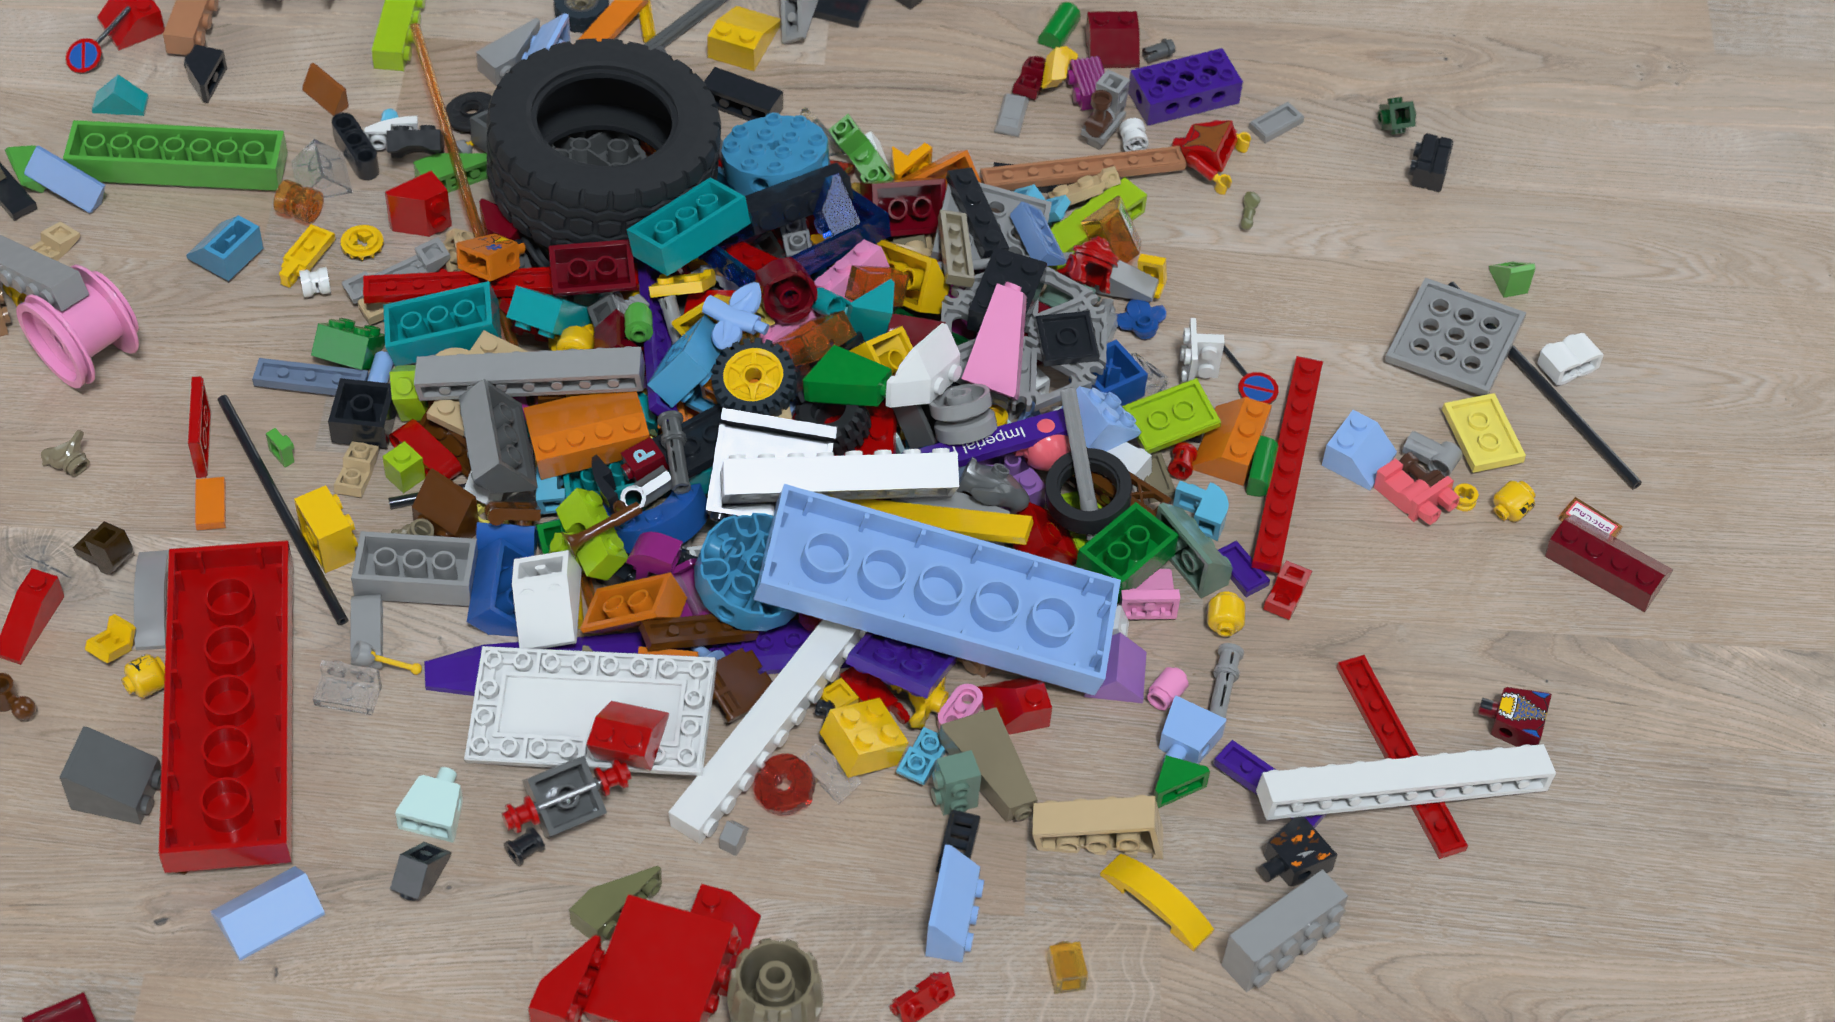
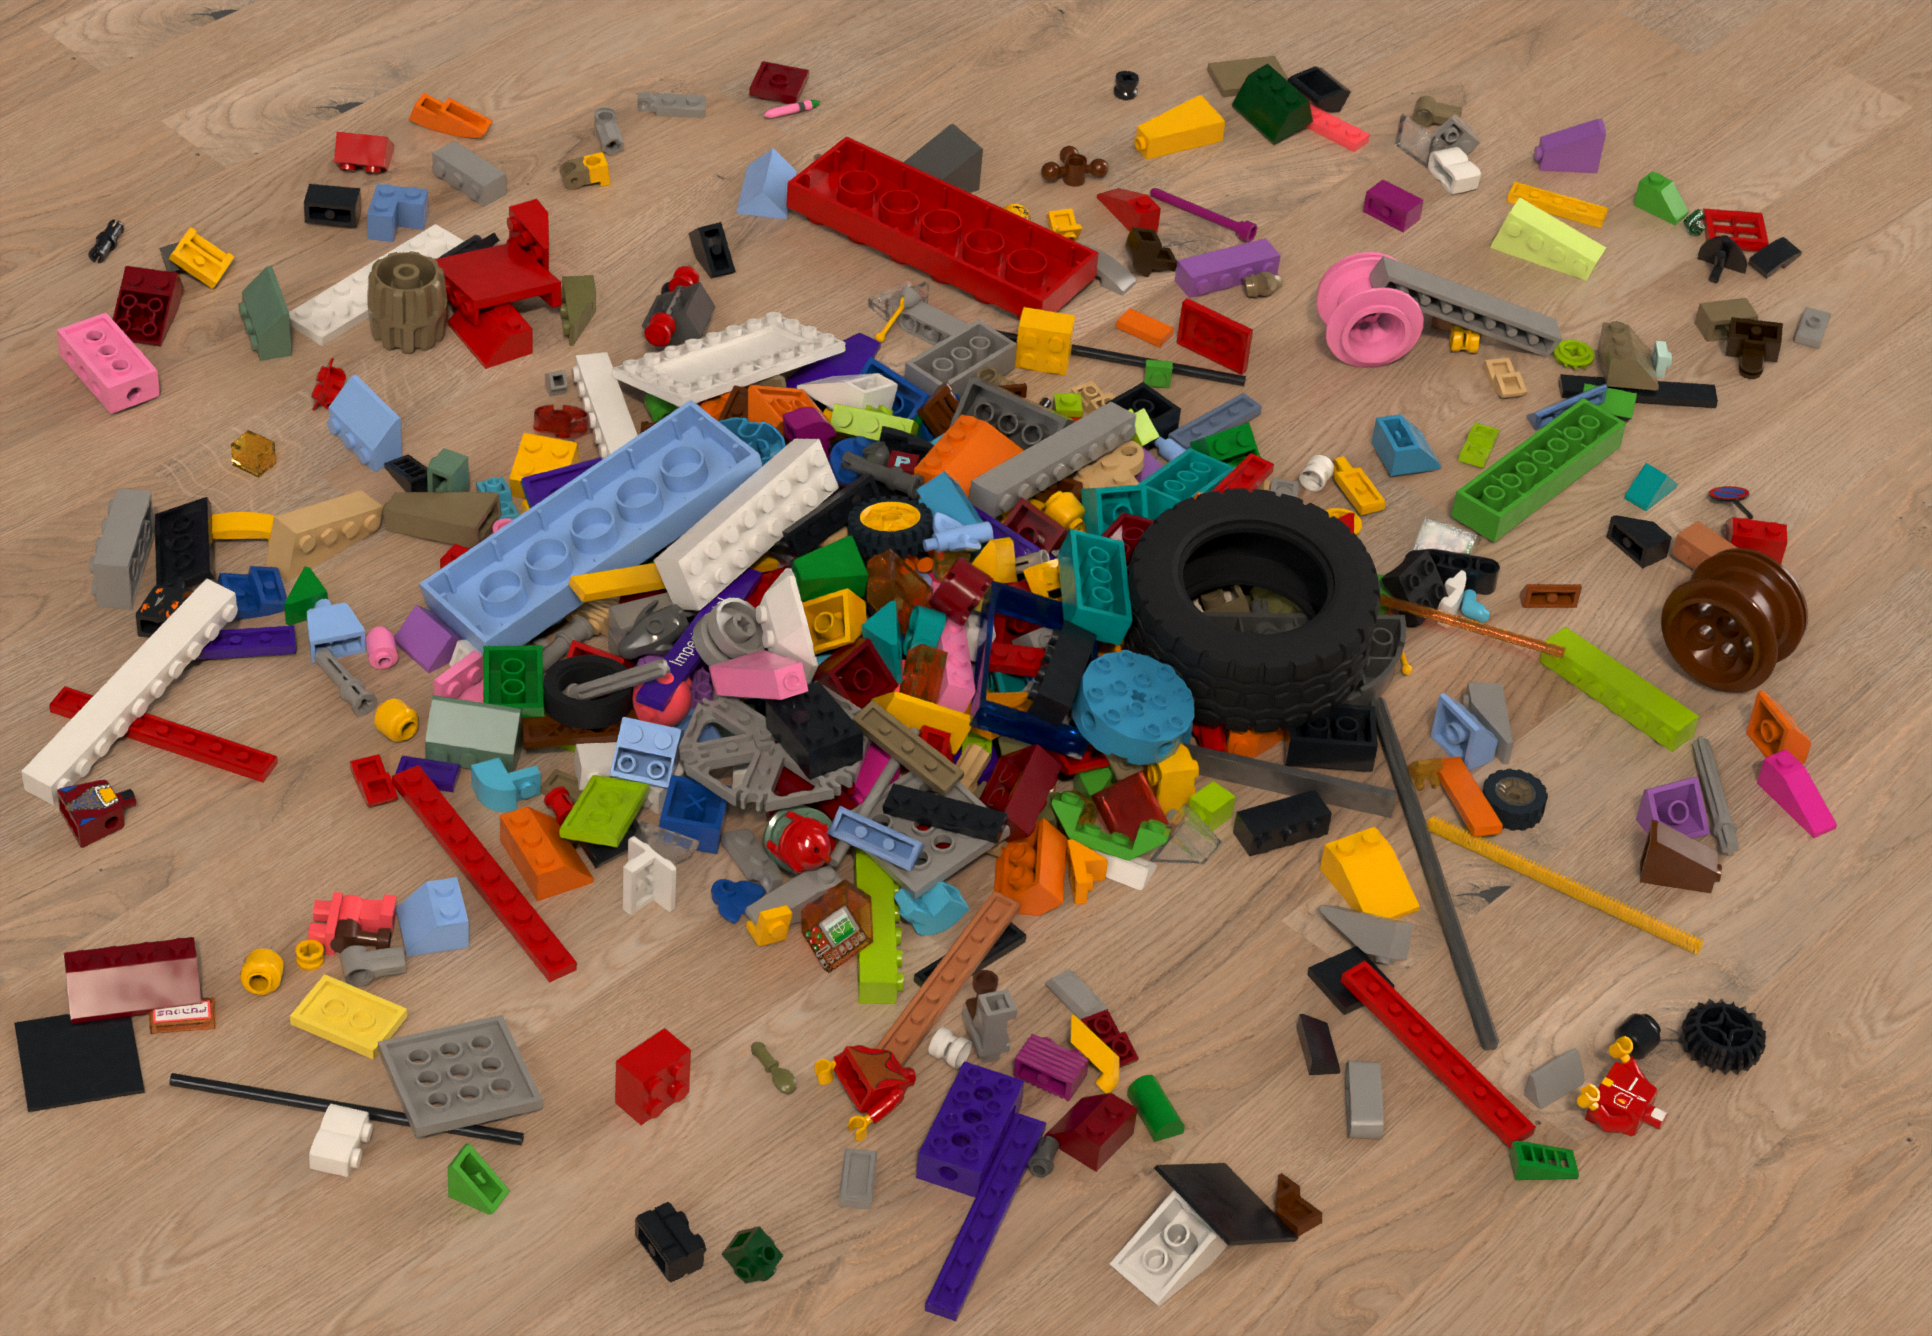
camera: 130 degrees right, 10 degrees down
(64, 491) = (1225, 267): none -> medium lavender brick
(79, 986) = (791, 108): none -> bright pink piece
(158, 220) = (1479, 445): none -> lime slope
(298, 201) = (1416, 504): clear orange wheel -> none
(432, 806) = (751, 279): light aqua torso -> none
(460, 105) = (1422, 657): black wheel -> none
(622, 515) = (865, 391): reddish brown piece -> none
(627, 734) = (677, 338): red slope -> none
(638, 322) = (1035, 529): bright green brick -> none
(834, 208) = (1013, 668): clear blue slope -> none
(1067, 338) = (735, 752): black tile -> none
(1088, 186) = (920, 950): tan hinge -> none
(1207, 829) = (257, 593): none -> blue slope
(1220, 908) = (184, 544): none -> black tile
(1255, 384) = (584, 920): piece -> none
(1258, 46) = (985, 1217): none -> dark purple tile
(1262, 467) = (498, 845): green brick -> none
(1343, 237) = (652, 1076): none -> red brick
(1690, 544) = (77, 1061): none -> black piece

